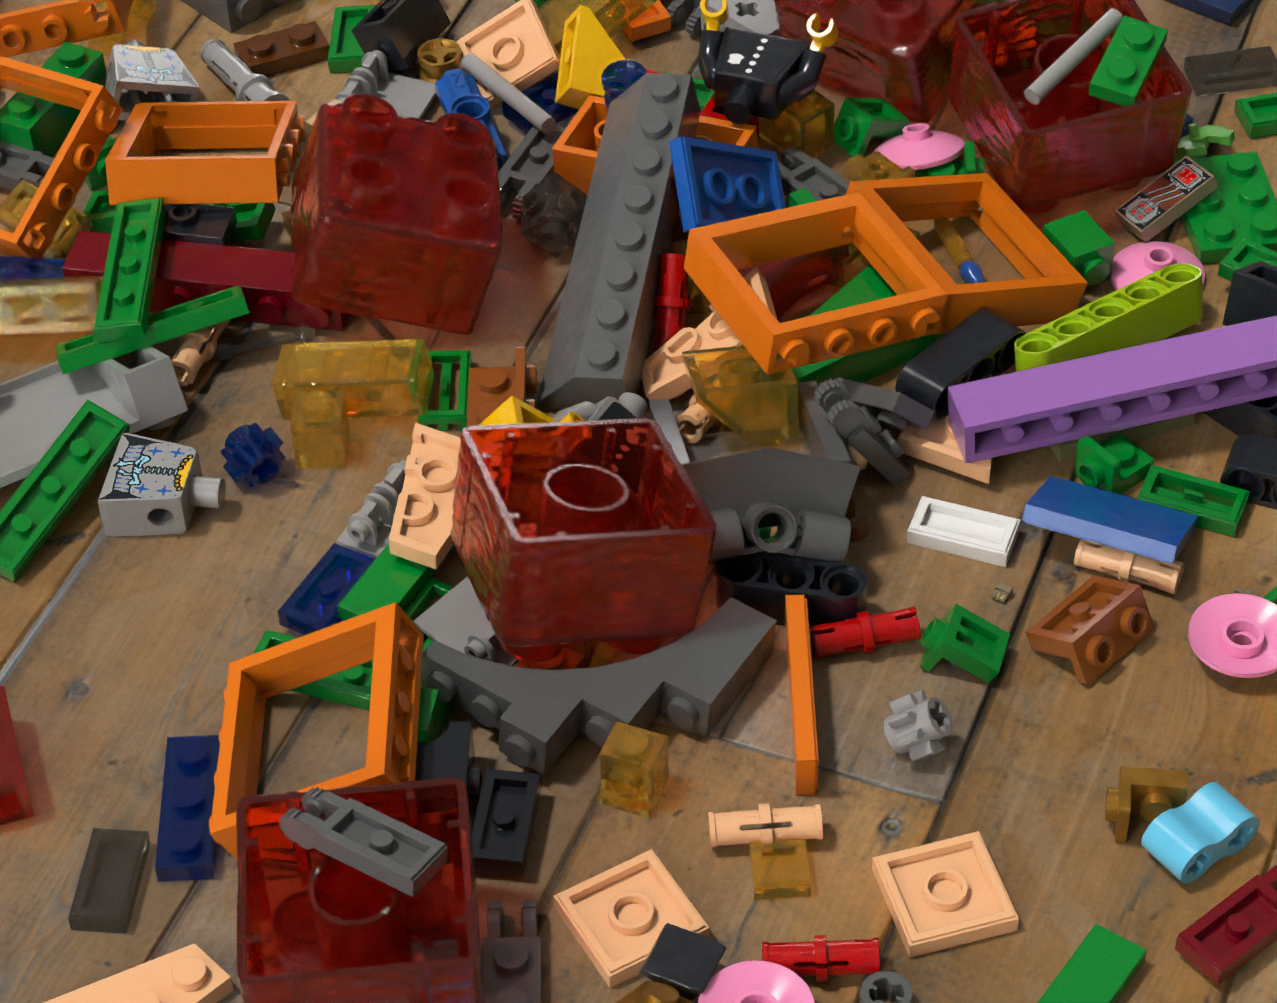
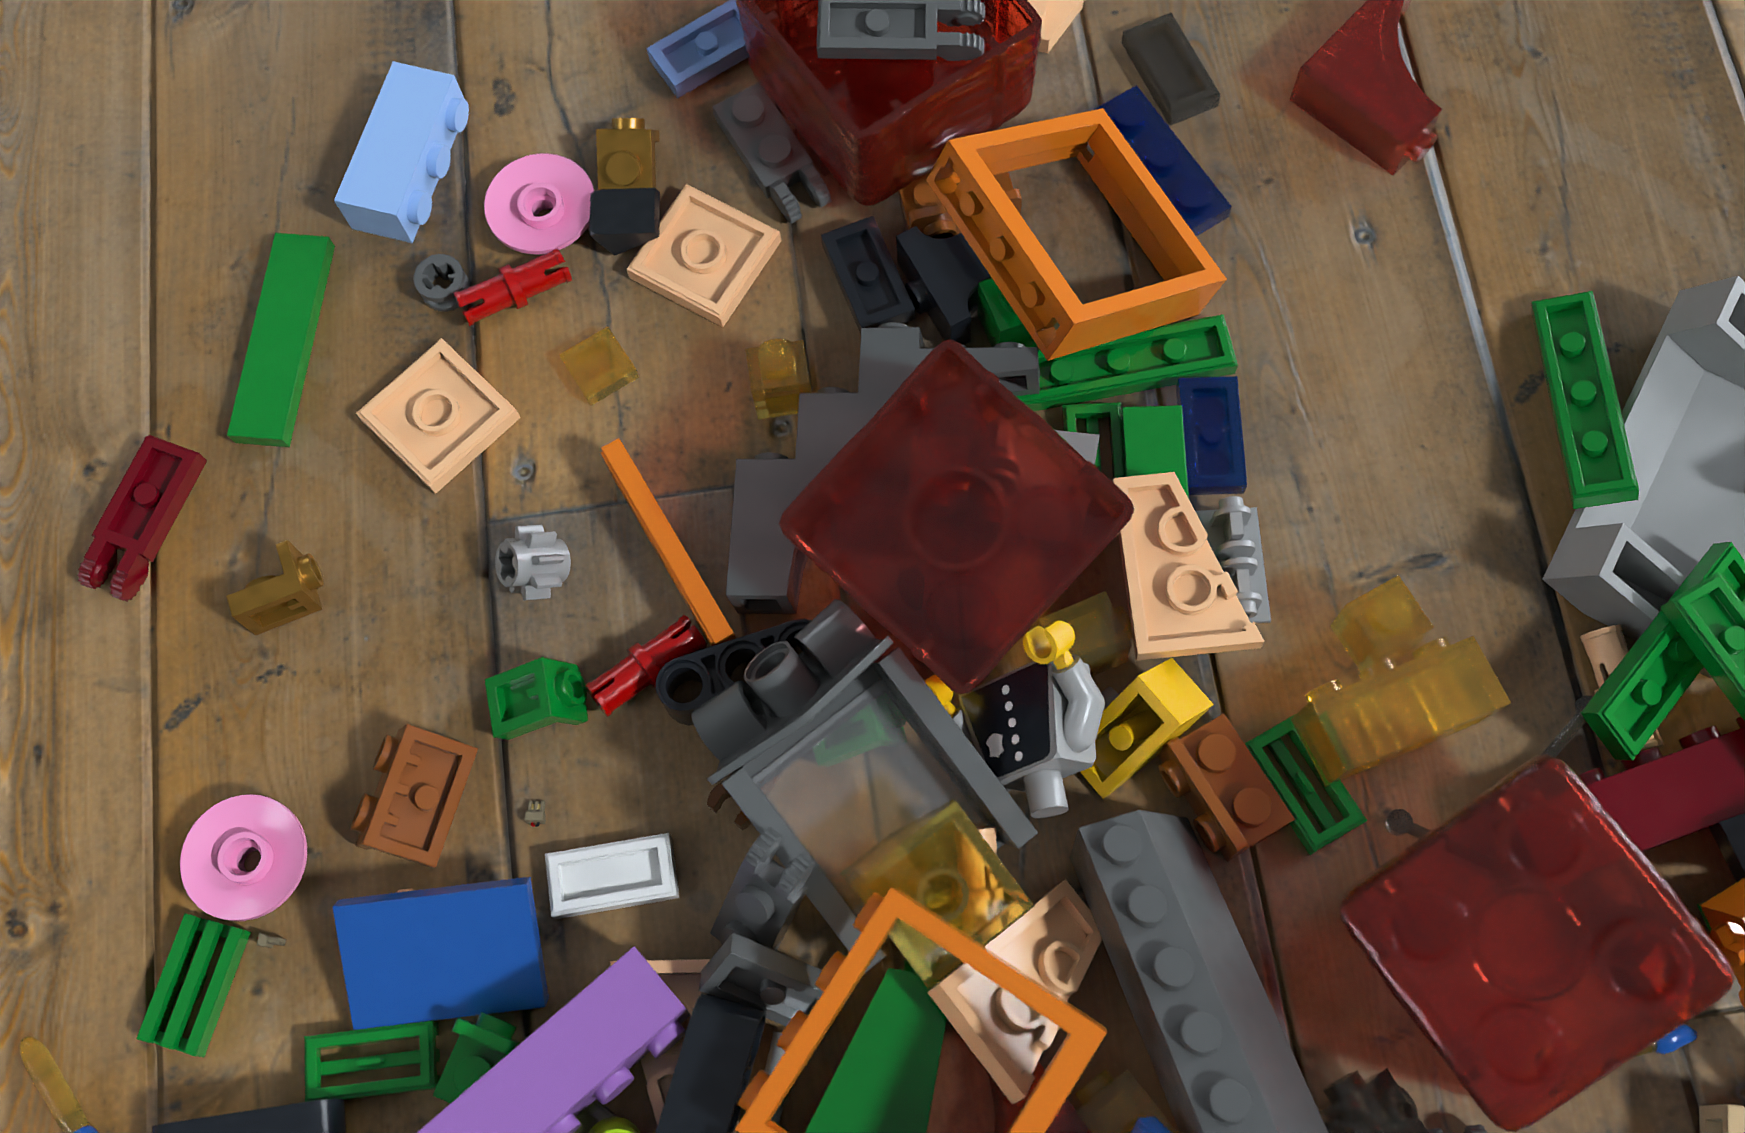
camera: 155 degrees right, 25 degrees up
(155, 488) = (1488, 465): light grey torso -> none
(253, 454) = (1423, 553): clear blue gear -> none
(671, 299) = (1124, 1038): red pin -> none
(805, 824) = (629, 390): light nougat pin -> none
(1200, 832) = (216, 567): medium azure axle -> none

